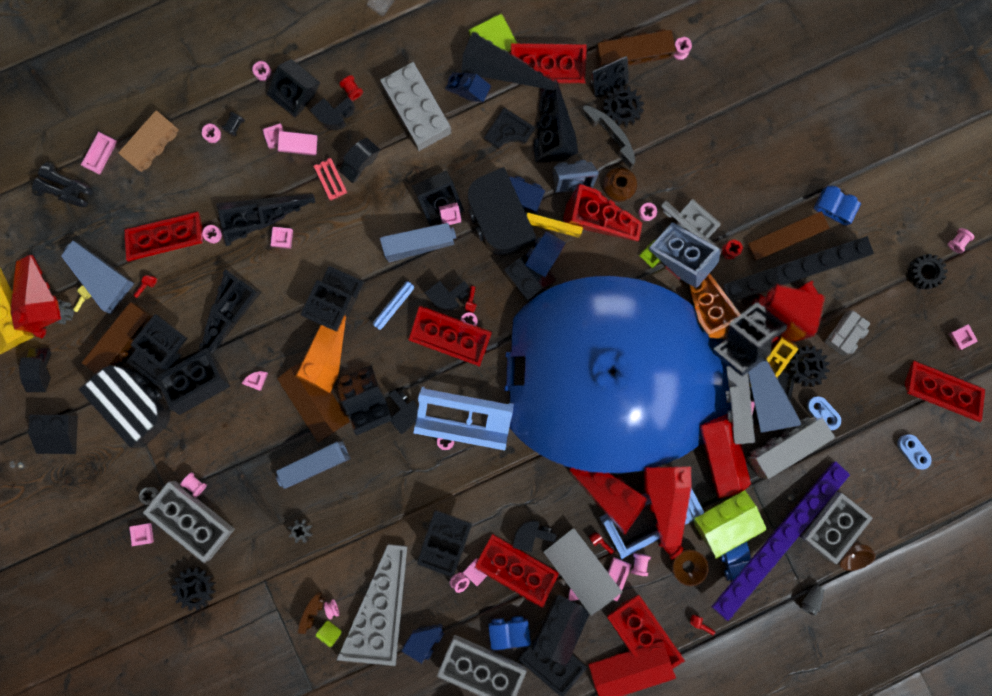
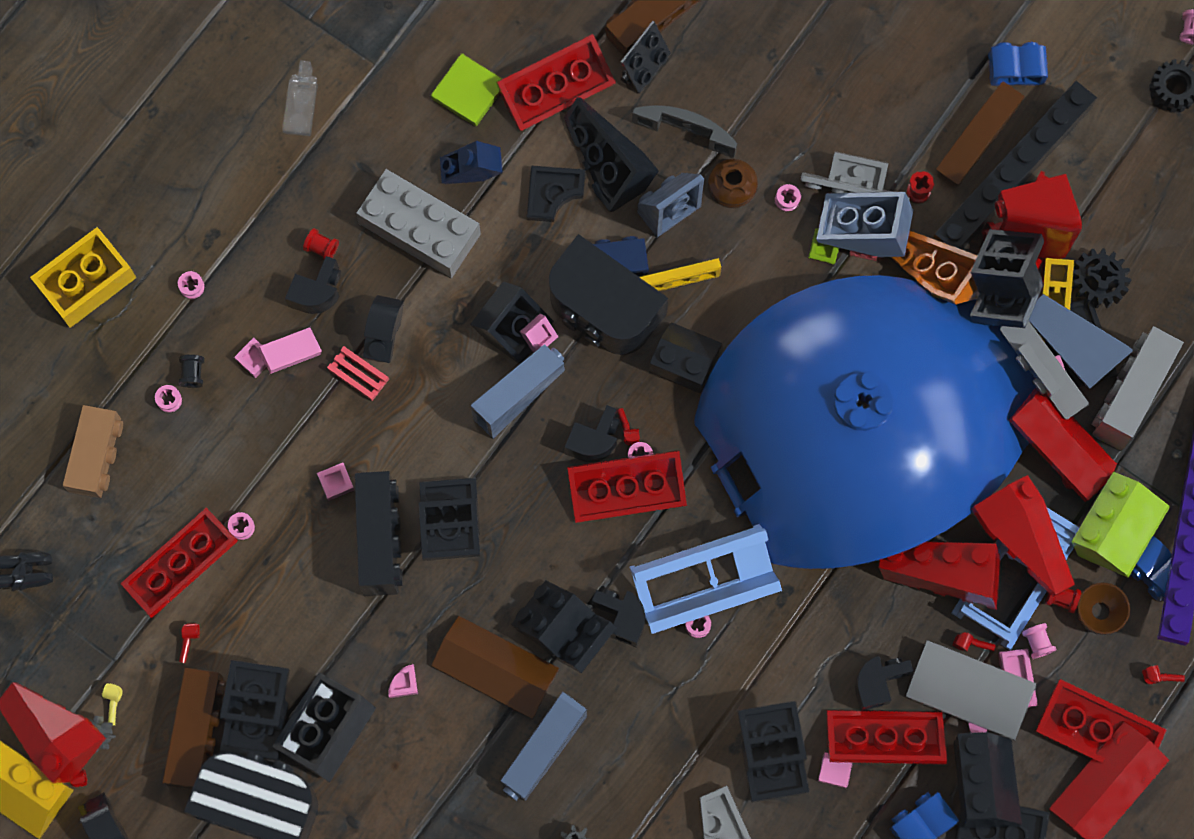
camera: 25 degrees left, 10 degrees down
(99, 153) = (31, 503): bright pink tile -> none
(99, 278) = (123, 661): sand blue slope -> none
(198, 31) = (83, 277): none -> yellow brick
(232, 302) = (317, 601): black wedge -> none
(246, 216) = (273, 479): black wedge -> none
(285, 283) = (376, 533): none -> black brick
(292, 87) = (244, 284): black slope -> none
(323, 358) = (478, 605): orange wedge -> none
(393, 305) = (531, 488): light blue axle -> none
(459, 582) = (821, 794): bright pink bush -> none
(491, 62) = (488, 117): black wedge -> none
(545, 253) = (689, 316): dark blue brick -> none
(599, 215) = (730, 232): red wedge -> none
(628, 111) = (694, 87): black gear -> none
(825, 410) = (1152, 318): light blue plate -> none
(847, 333) = (1124, 212): light grey brick -> none

